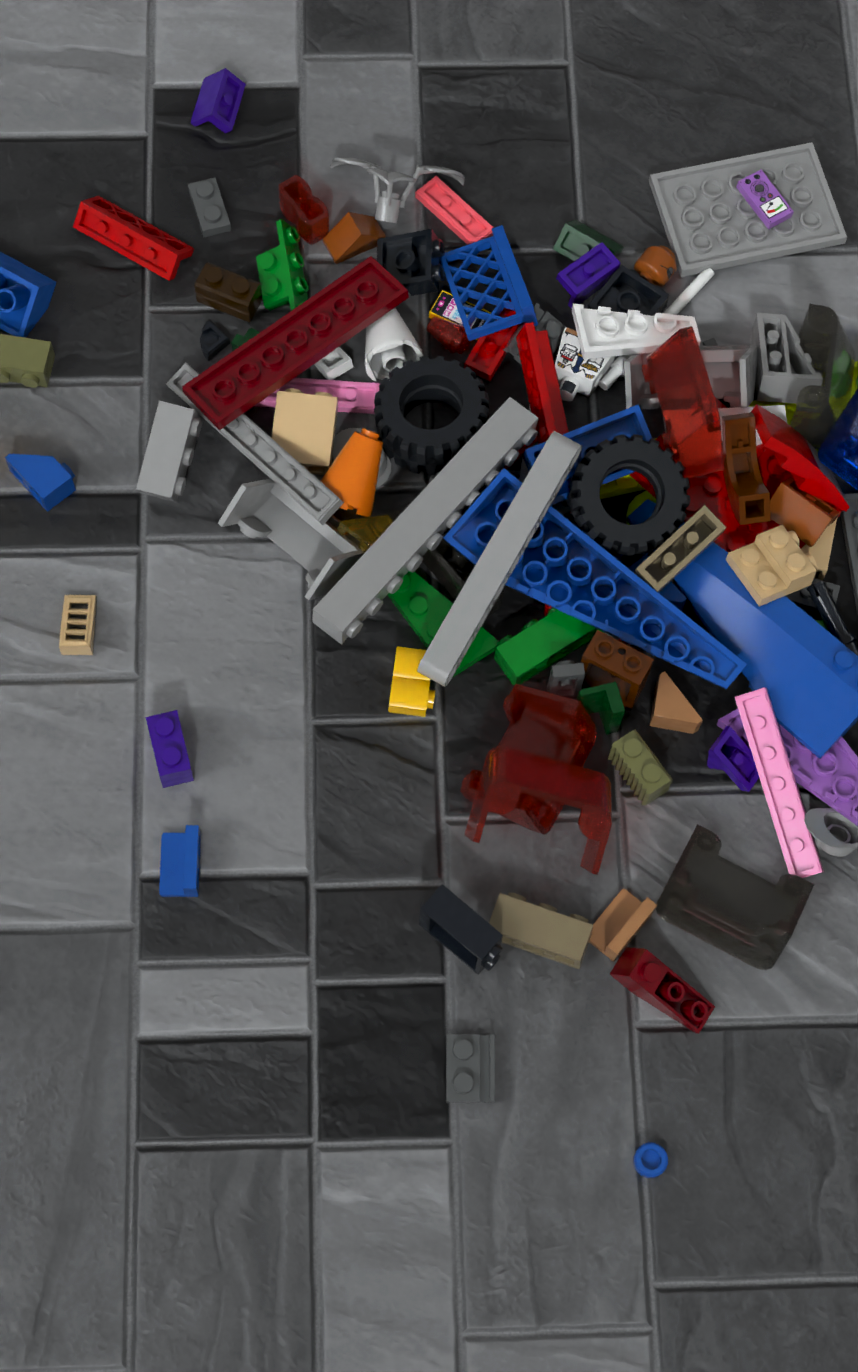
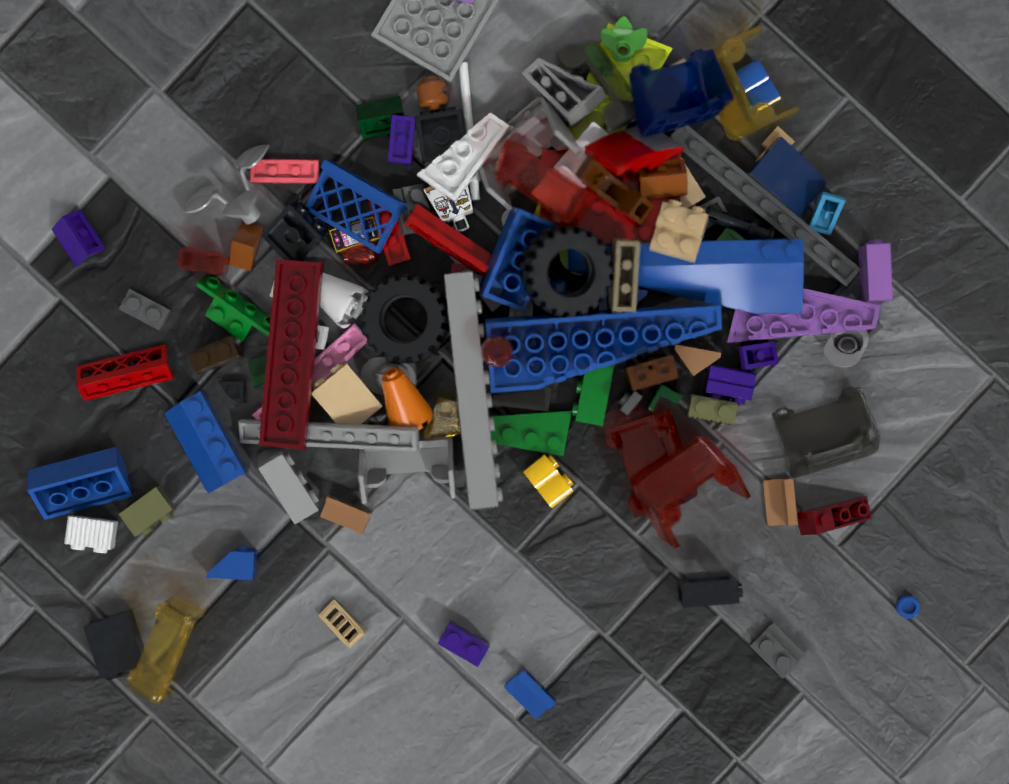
camera: 40 degrees left, 20 degrees up
(138, 354) = (206, 441): none -> blue slope
(191, 532) = (345, 514): none -> medium nougat panel
(488, 504) = (490, 346): none -> clear red head
(499, 559) = (535, 376): light grey beam -> none
(541, 929) = (745, 548): dark tan brick -> none
(683, 761) = (729, 383): none -> dark purple brick
(778, 783) = (790, 347): bright pink tile -> none

